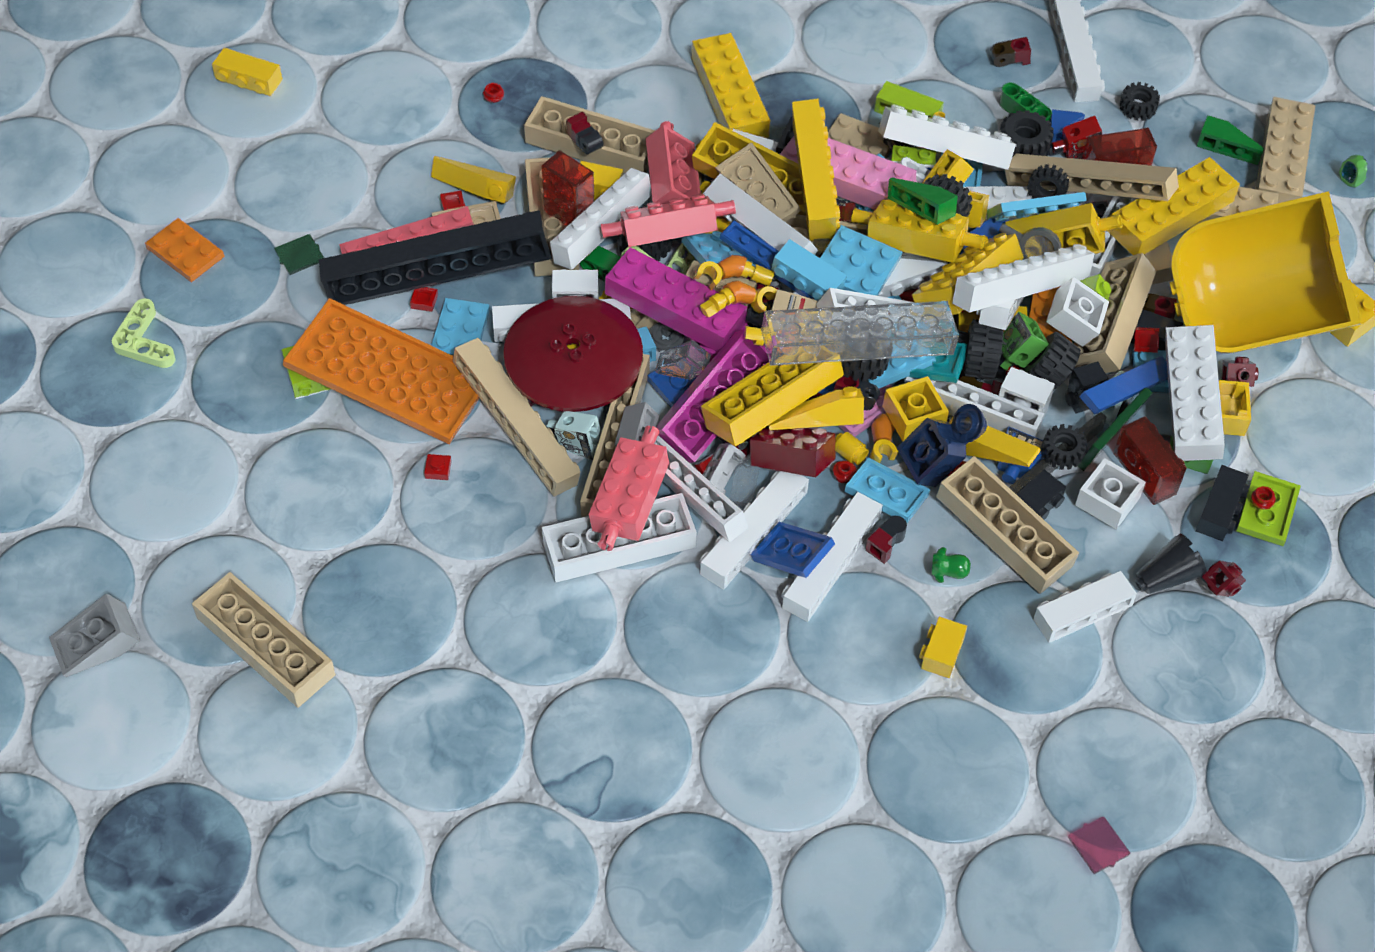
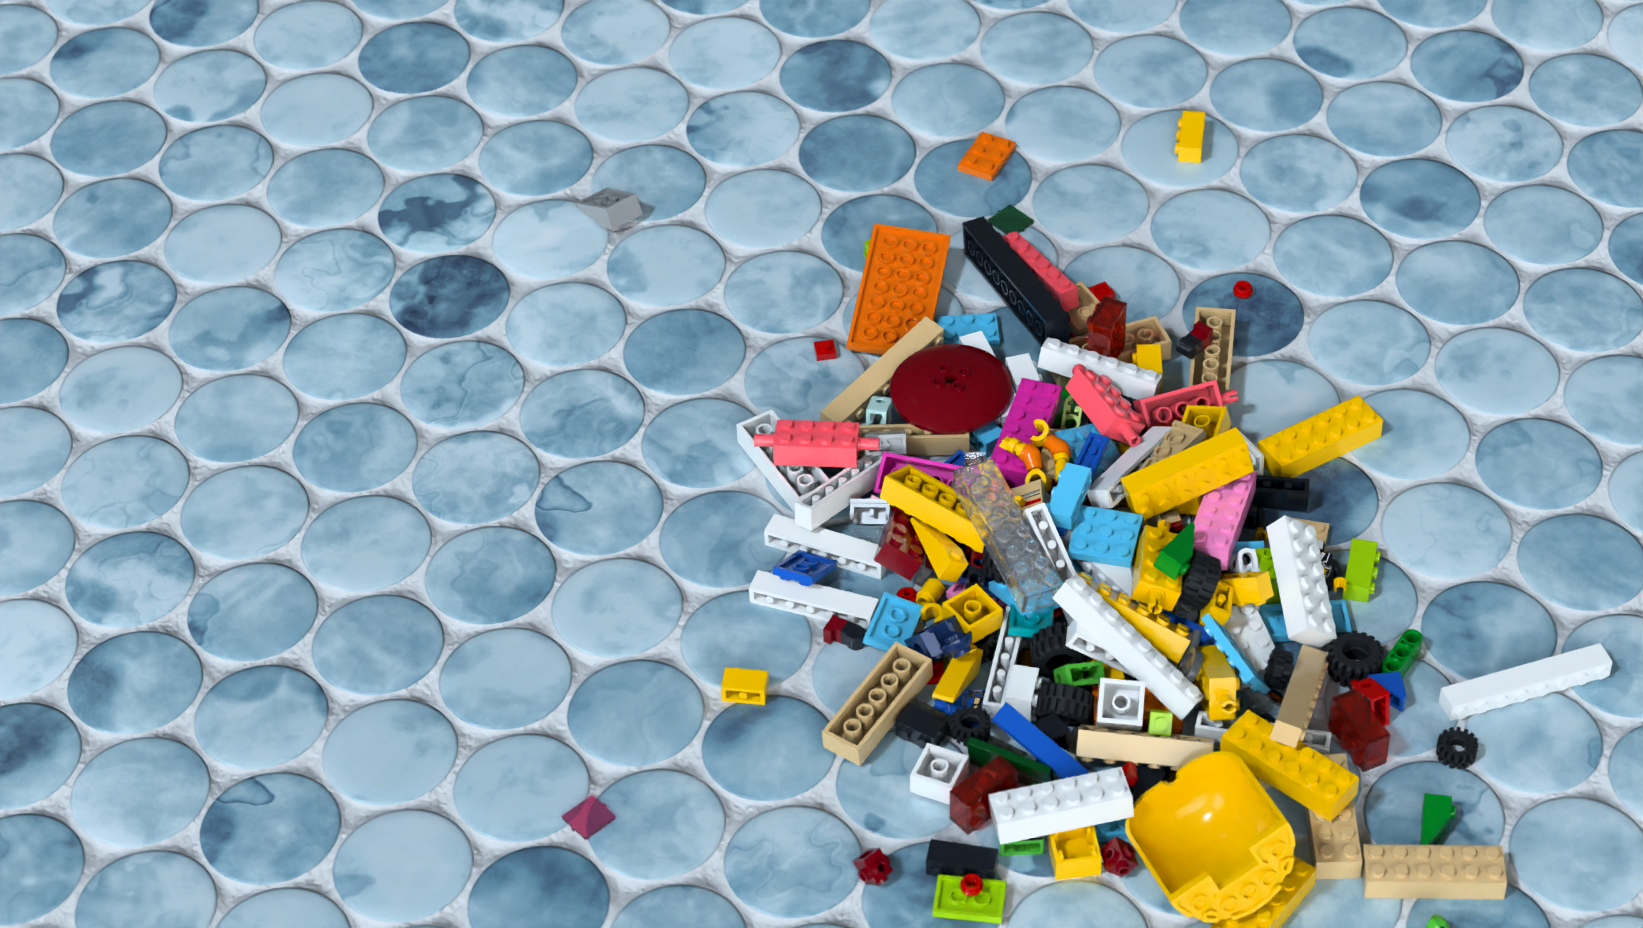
camera: 80 degrees right, 10 degrees down
(136, 341) = (880, 151): yellowish green beam -> none
(264, 639) = (629, 289): tan brick -> none
(424, 299) = (989, 300): red plate -> none
(474, 179) = (1133, 295): yellow slope -> none
(953, 566) = (829, 678): green animal -> none
(1011, 52) = (1475, 638): leg -> none
(1084, 606) = (816, 774): white brick -> none
(1171, 566) = (875, 826): black cone -> none

